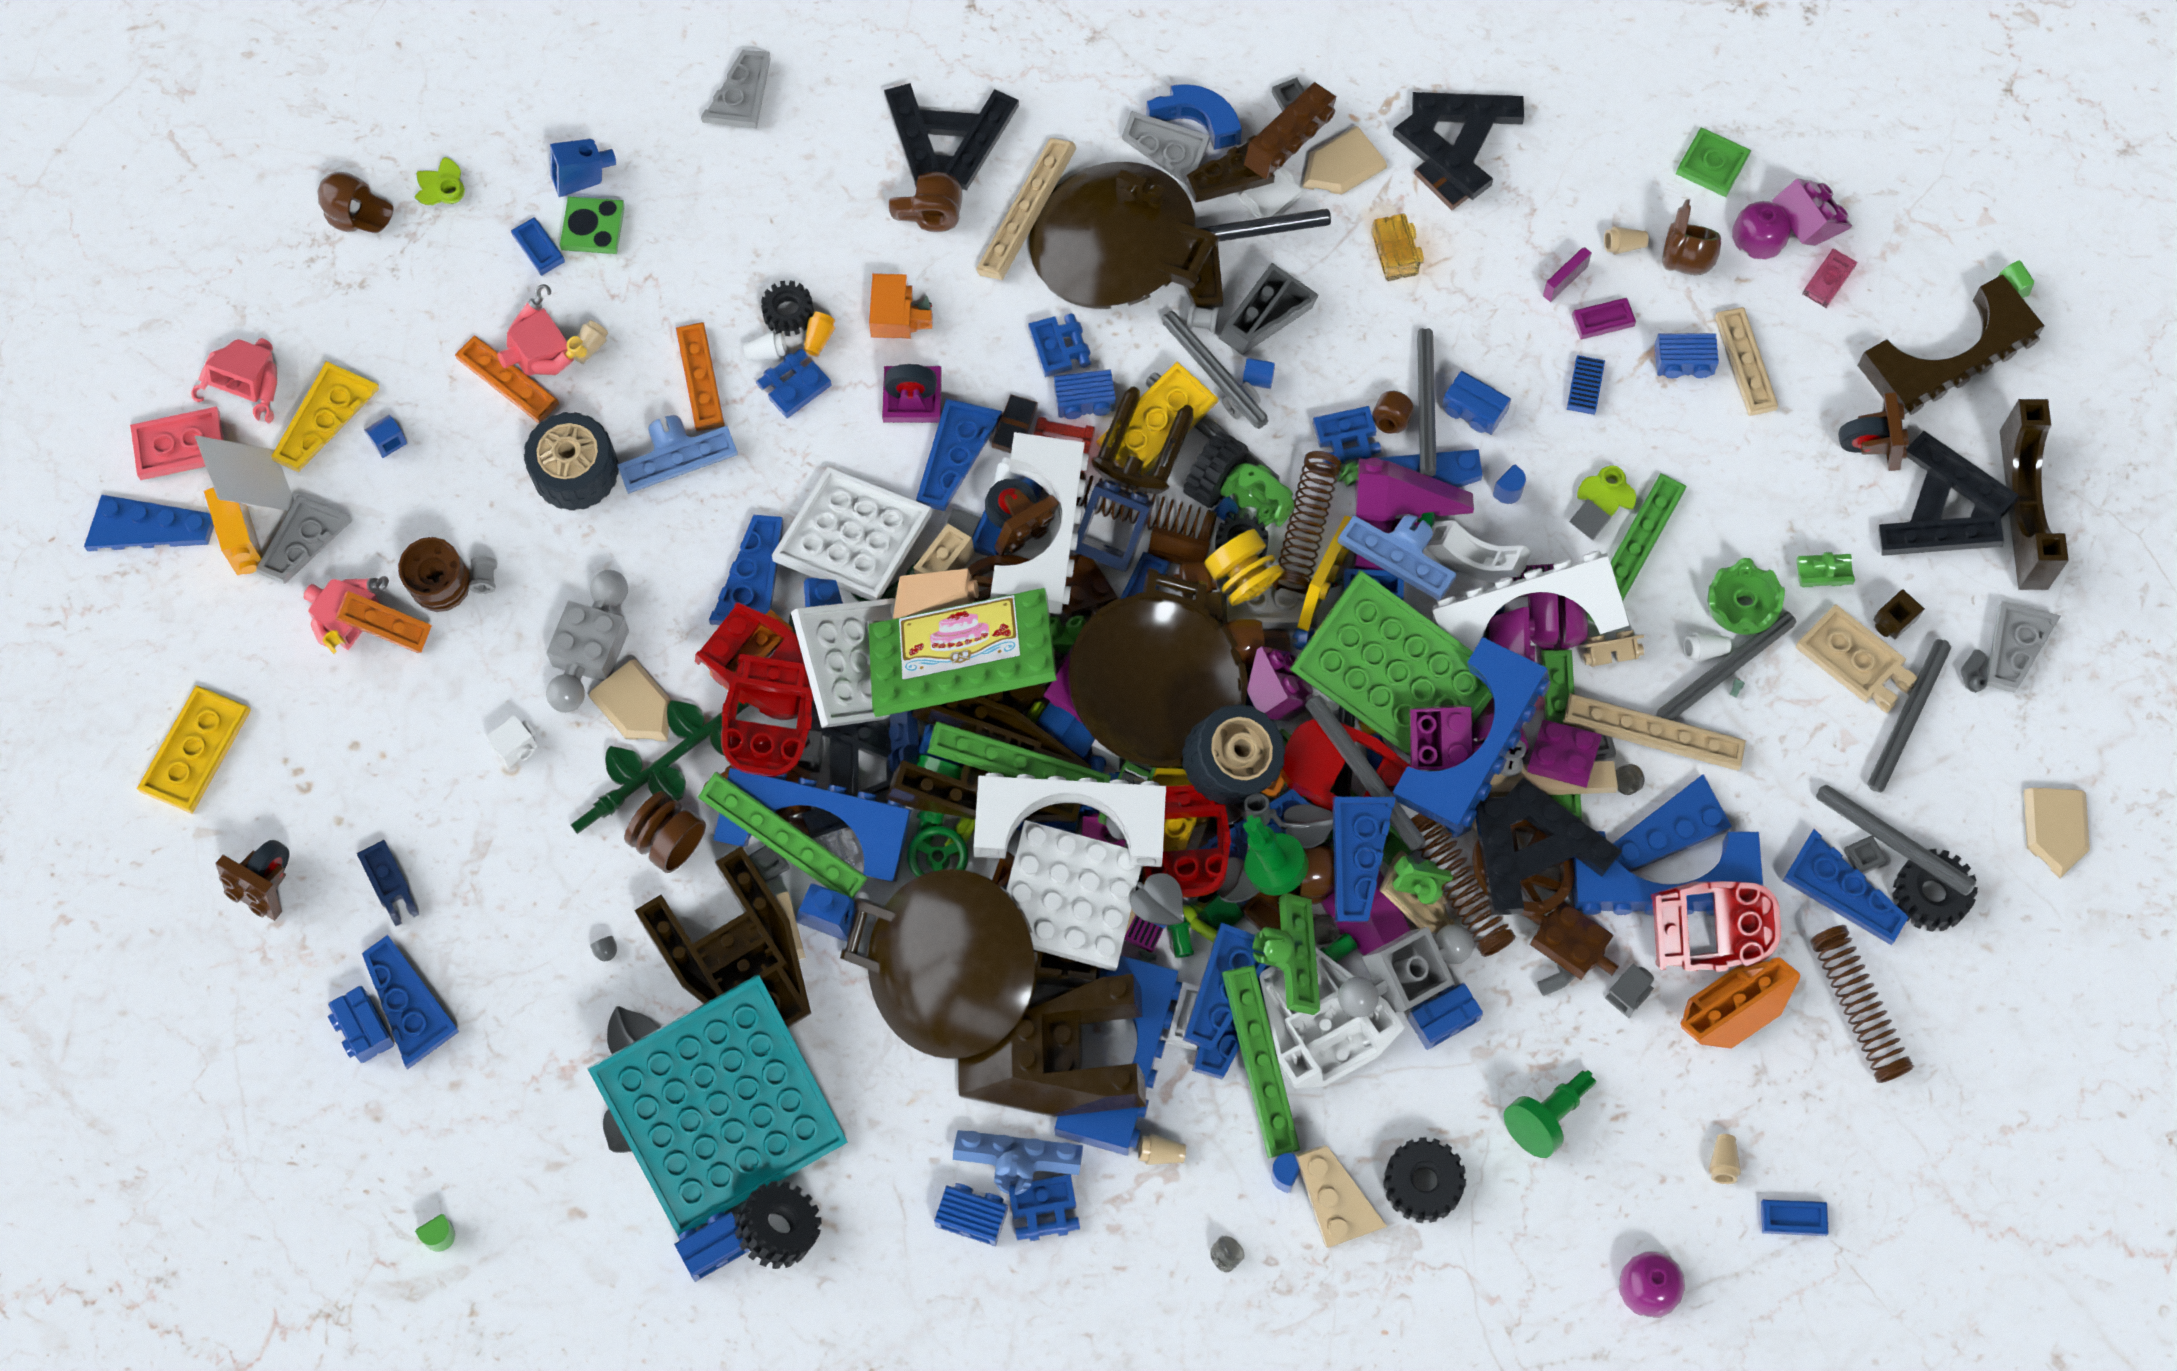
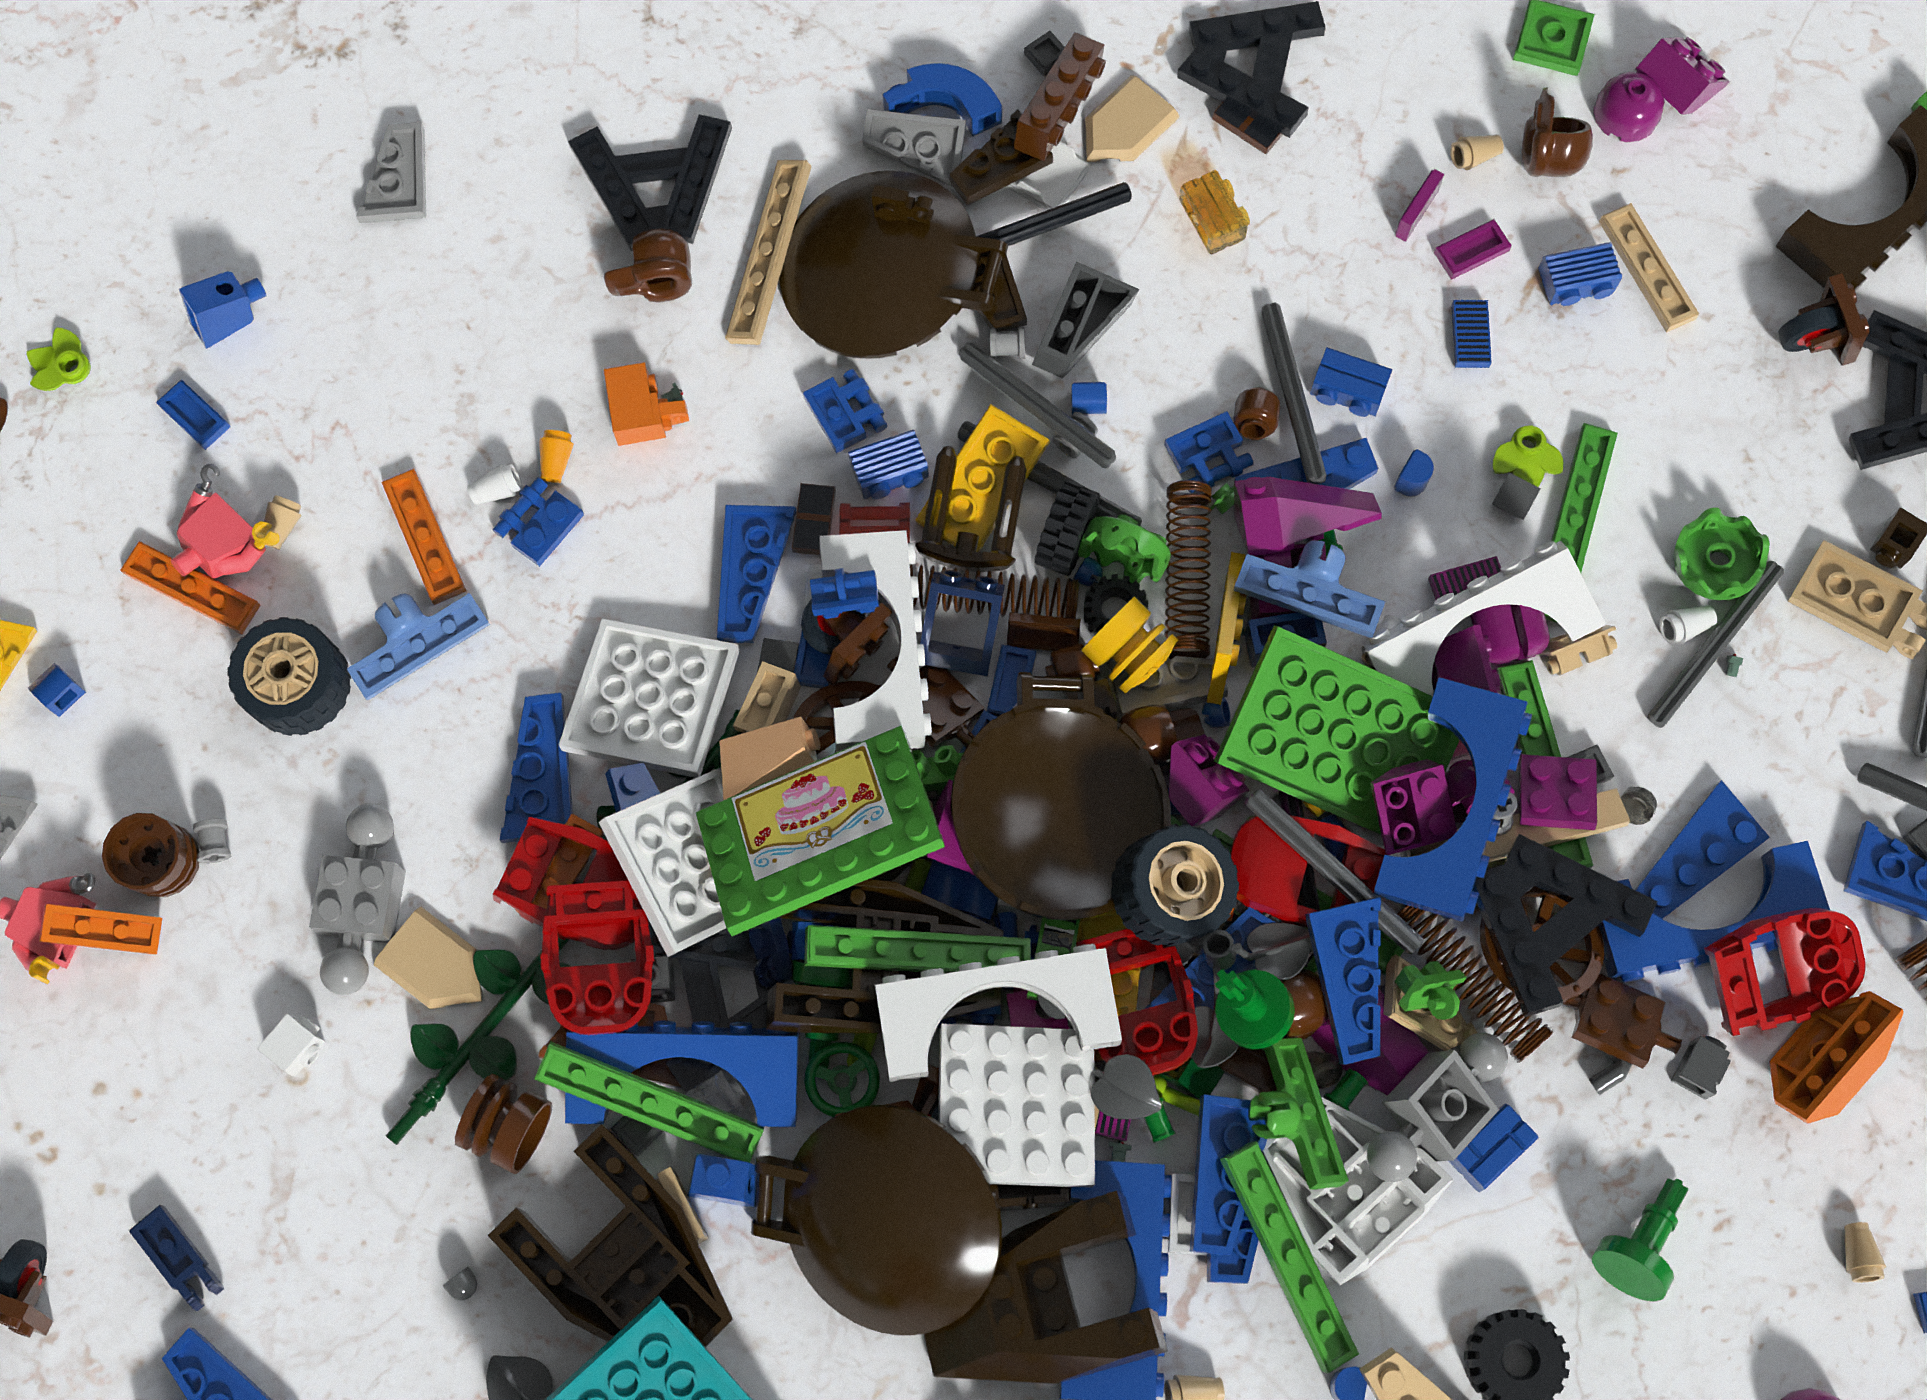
camera: 10 degrees left, 5 degrees up
(592, 225) = (253, 375): bright green tile -> none
(784, 294) = (498, 417): black tyre -> none
(912, 394) = (683, 507): plate -> none
(1023, 479) = (844, 593): none -> blue hips
(1475, 557) = (1397, 570): white arch -> none
(1654, 732) = (1652, 740): tan tile -> none
(1825, 570) = (1803, 502): bright green hips -> none
(1829, 278) = (1719, 148): clear pink plate -> none

